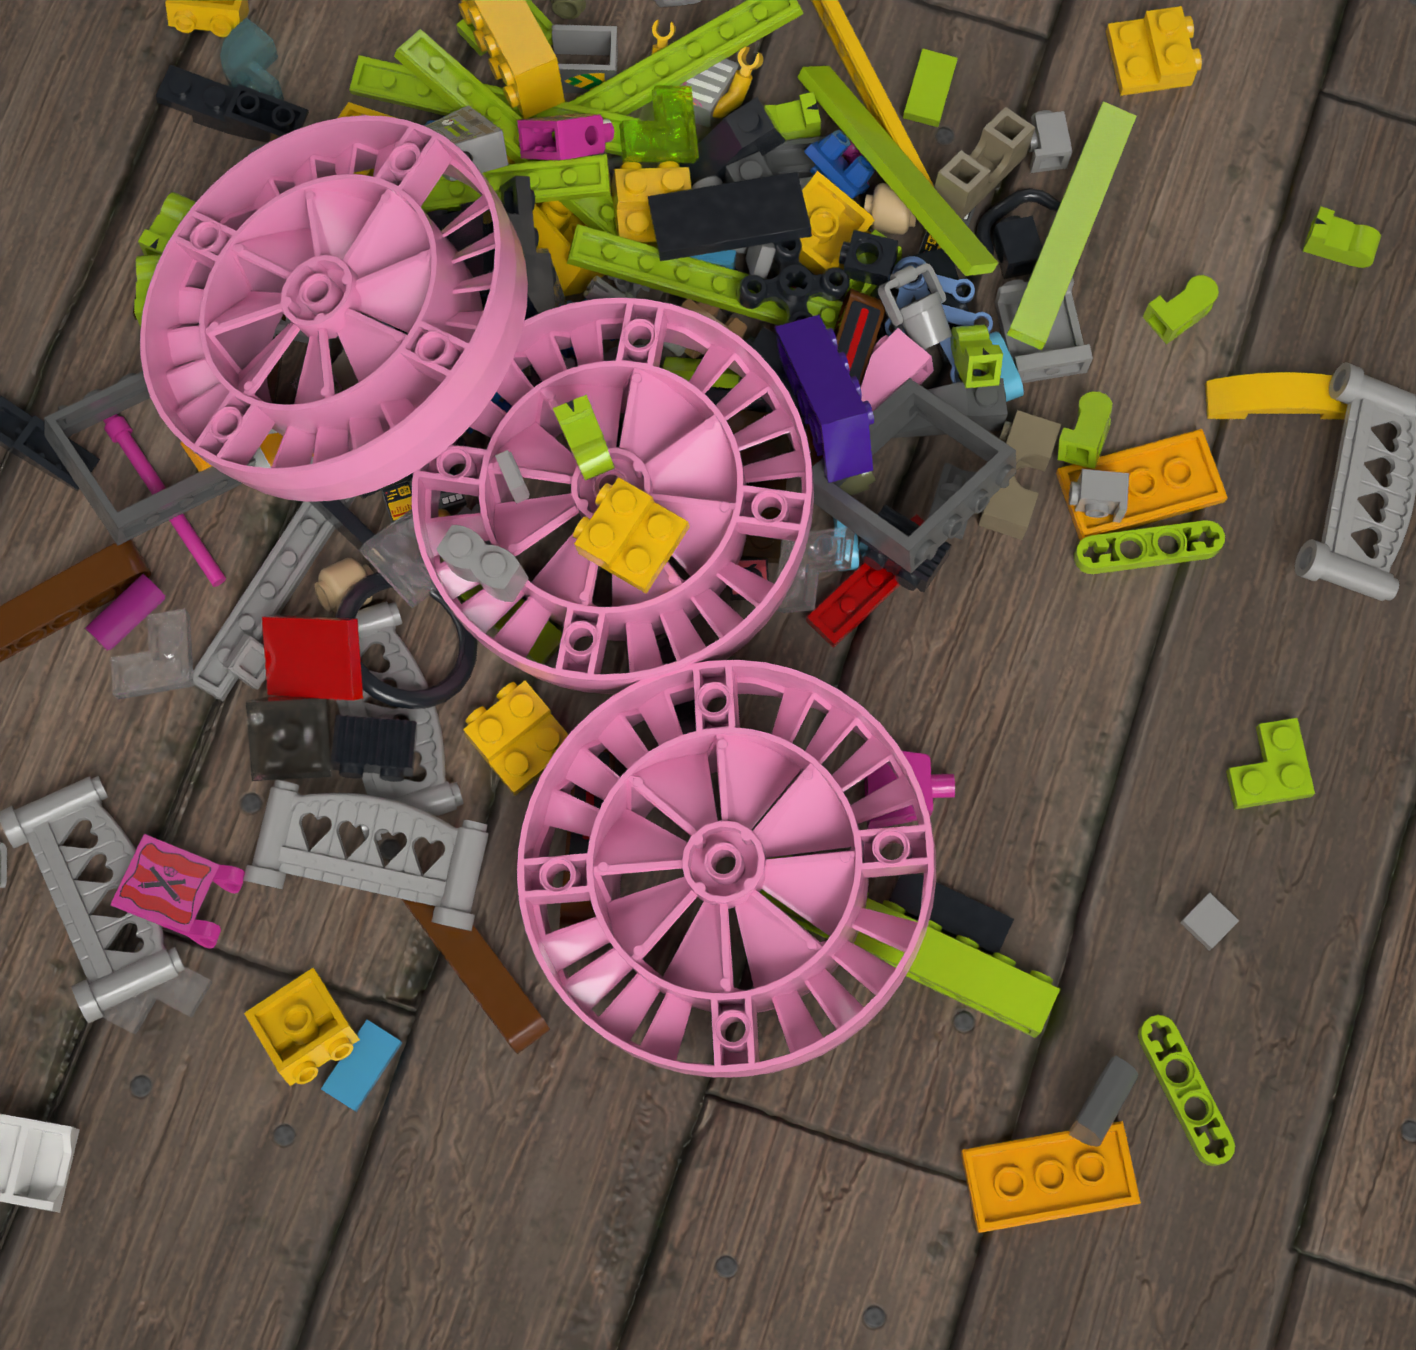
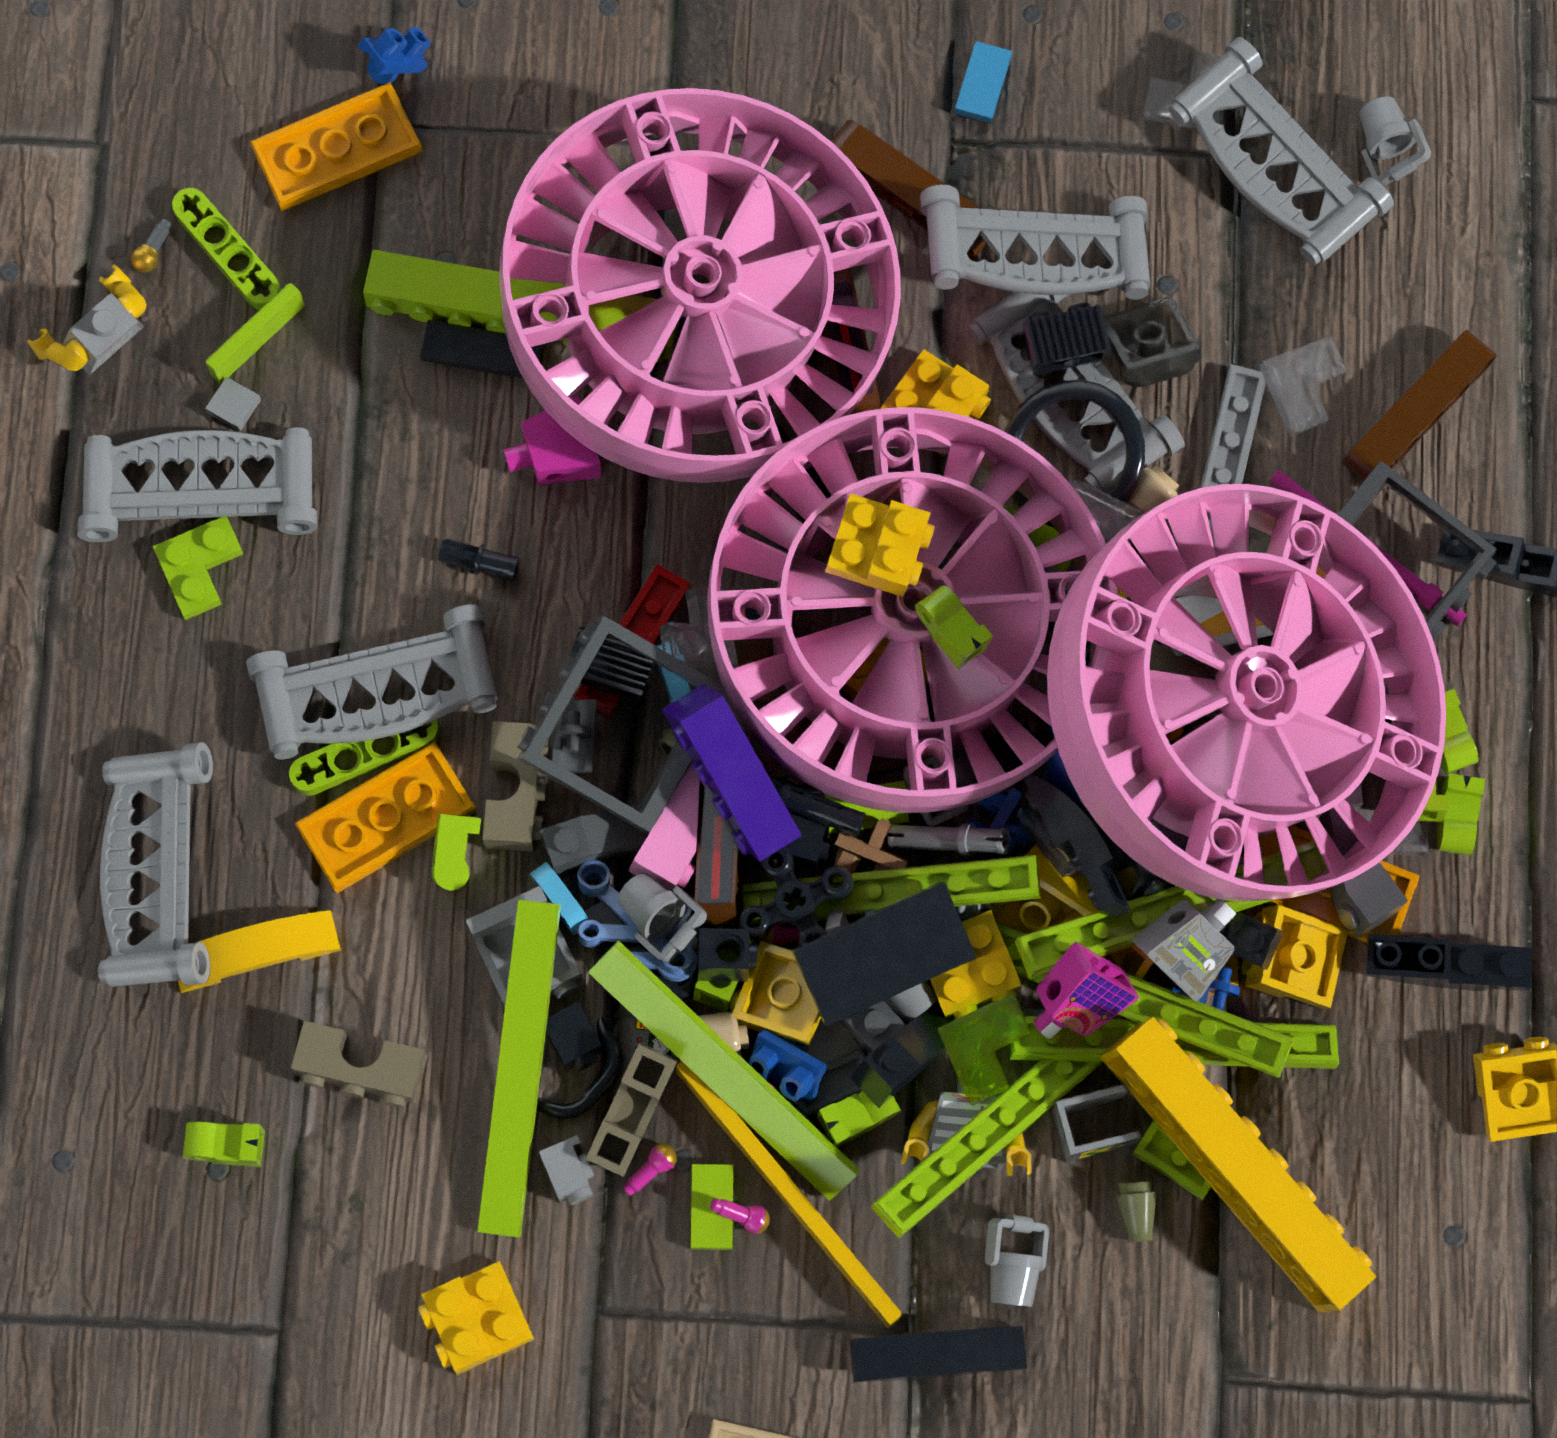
camera: 165 degrees right, 0 degrees up
(125, 613) = (1348, 412): magenta brick -> none
(170, 886) = (1210, 175): flag -> none
(246, 57) = (1459, 1021): clear light blue brick -> none
(248, 662) = (1213, 402): light grey tile -> none
(302, 1028) = (1046, 93): yellow plate -> none
(312, 657) = (1153, 401): red tile -> none
(488, 564) = (1007, 479): light grey brick -> none
(512, 476) = (1012, 573): light grey tile -> none
(898, 67) = (752, 1218): none -> dark pink piece
(965, 134) = (660, 1159): none -> dark pink piece
(968, 1254) = (395, 54): none -> blue hips
(974, 350) = (588, 879): lime leg -> none
(1001, 699) = (479, 559): none -> black axle
(1044, 611) = (287, 690): none -> light grey piece
(1100, 494) = (426, 777): light grey brick -> none
(1104, 1102) = (301, 210): dark grey brick -> none
(1175, 984) = (255, 333): none -> lime tile
(1182, 311) = (379, 1015): lime leg -> none
(1187, 254) = (392, 1076): none -> dark tan arch
(1270, 1102) = (145, 257): none -> piece
(1329, 1022) = (99, 331): none -> torso
(1347, 848) = (282, 493): none -> light grey piece

